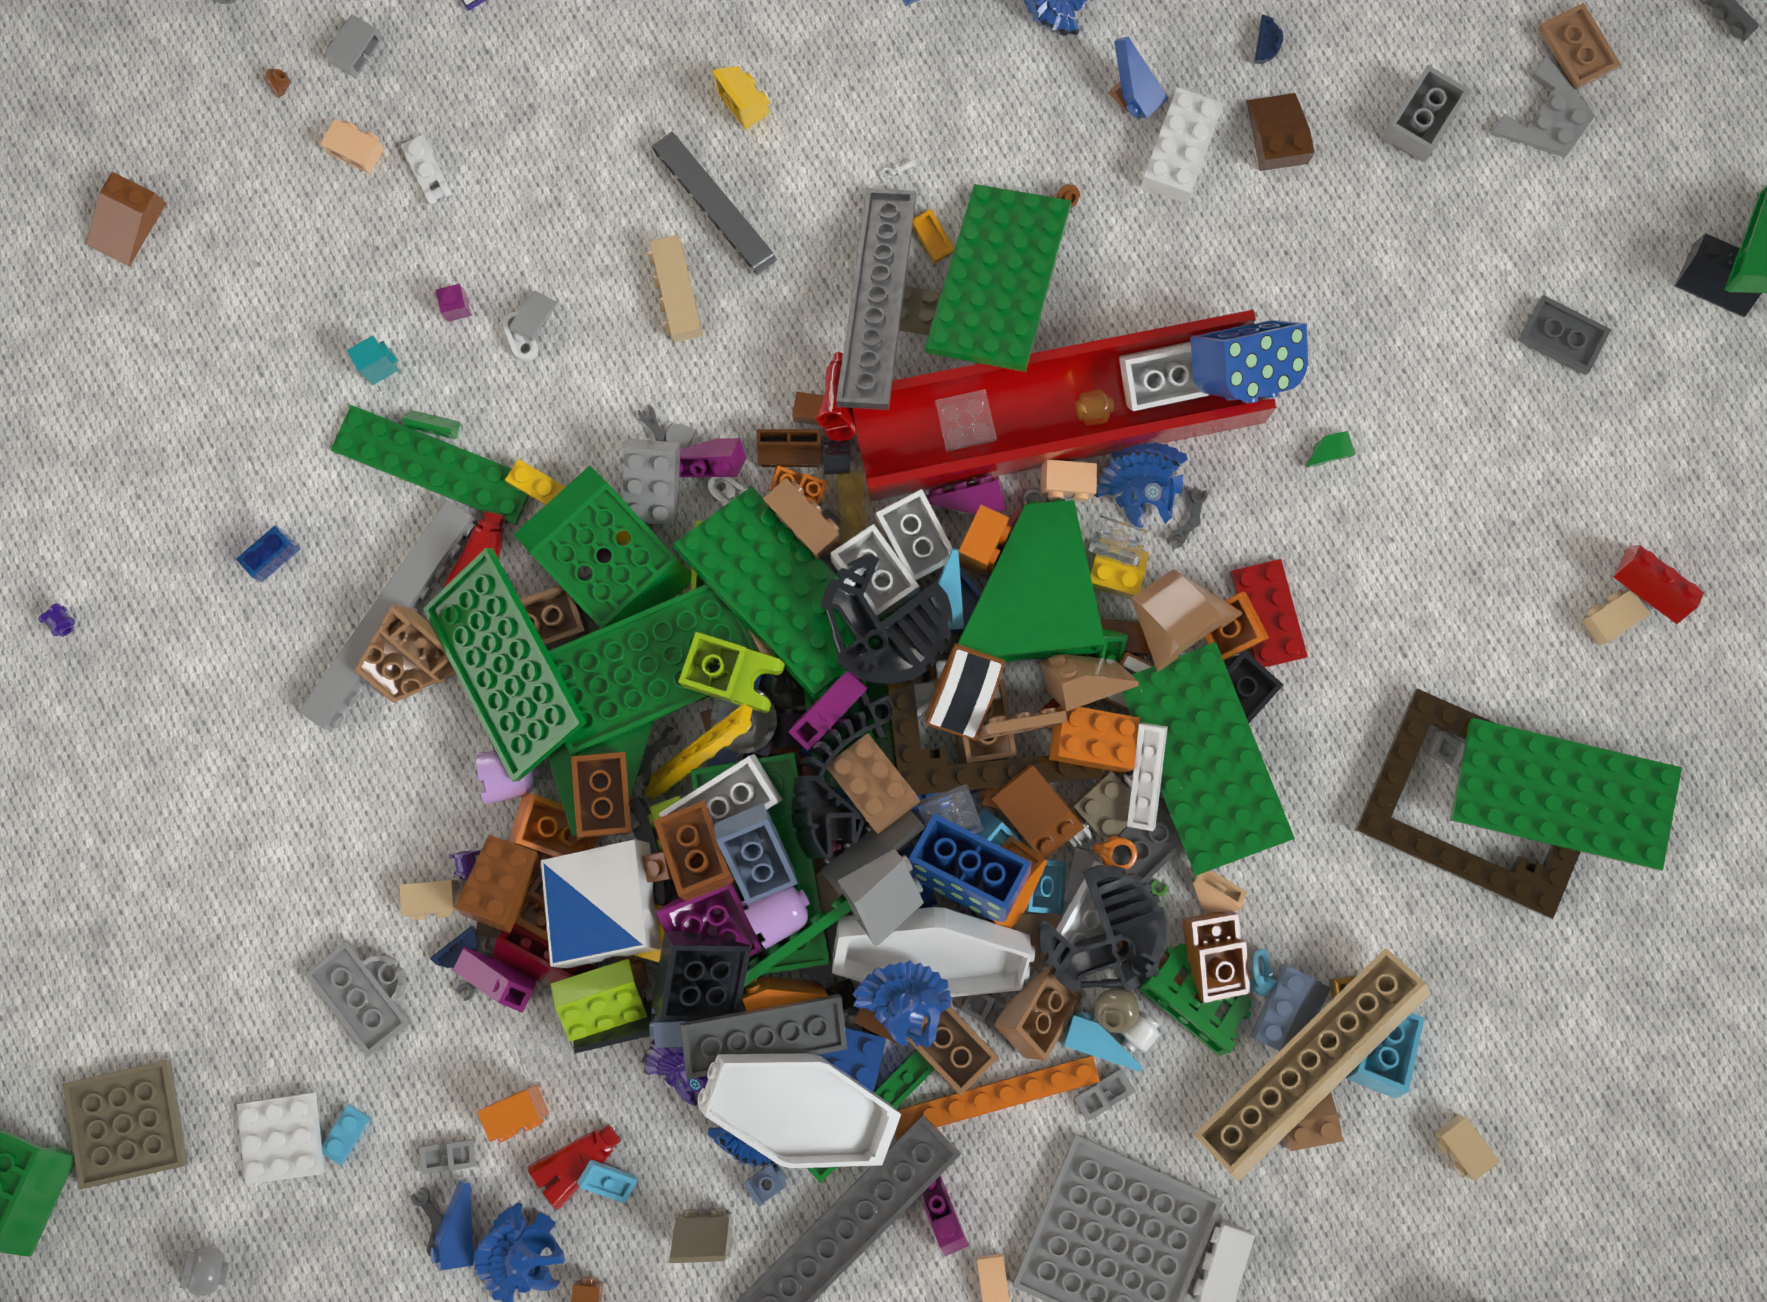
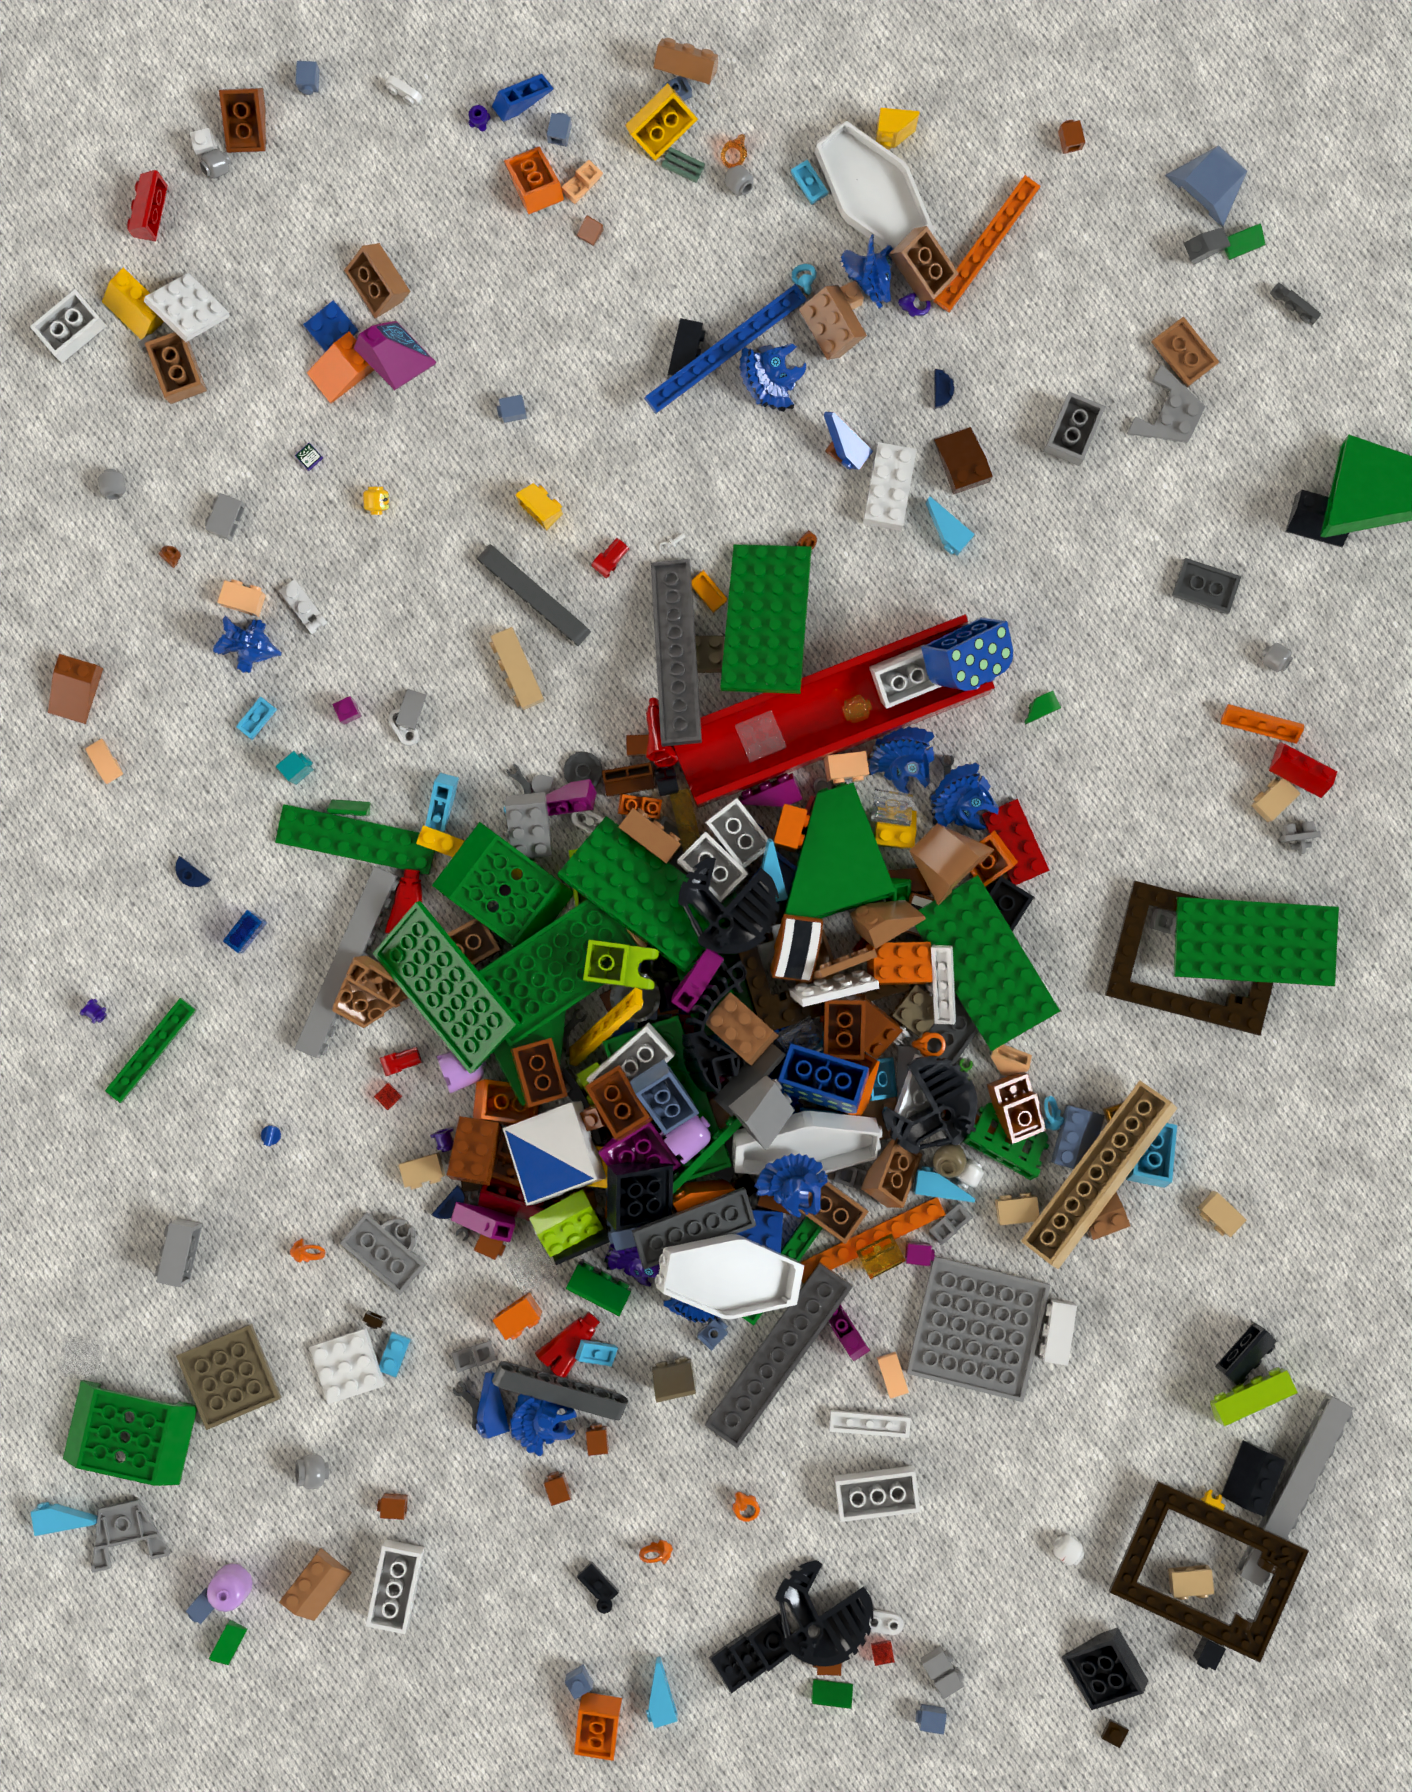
camera: 15 degrees left, 5 degrees up
(93, 948) = (178, 1252): none -> light grey brick
(118, 683) = (150, 1050): none -> green plate
(140, 314) = (104, 761): none -> light nougat slope
(216, 471) = (189, 874): none -> dark blue plate
(246, 818) = (270, 1135): none -> blue plate
(250, 978) = (299, 1252): none -> orange piece
(327, 1083) = (374, 1320): none -> dark brown plate
(340, 294) = (256, 718): none -> medium azure plate
(345, 198) = (249, 644): none -> blue piece
(406, 795) = (388, 1096): none -> clear red plate
(433, 752) = (396, 1062): none -> red piece
(496, 1015) = (490, 1247): none -> dark orange brick
(541, 56) = (376, 500): none -> yellow head
(548, 1223) = (559, 1390): none -> dark grey beam
(549, 434) = (441, 801): none -> medium azure slope
(627, 1095) = (599, 1288): none -> green slope
(735, 422) = (578, 763): none -> dark grey tile
(813, 177) = (608, 561): none -> red piece
(1003, 753) = (834, 988): none -> white plate
(1005, 1121) = (881, 1256): none -> clear yellow brick
(1009, 804) = (845, 1027): none -> dark orange brick
(1056, 1127) = (919, 1253): none -> magenta brick
(1195, 1092) = (1017, 1209): none -> tan brick
(1208, 543) = (961, 797): none -> blue piece
(1250, 212) = (950, 530): none -> medium azure slope
(1611, 518) = (1262, 724): none -> orange plate
(1642, 438) = (1277, 657): none -> light grey head
(1652, 667) = (1308, 832): none -> light grey hips

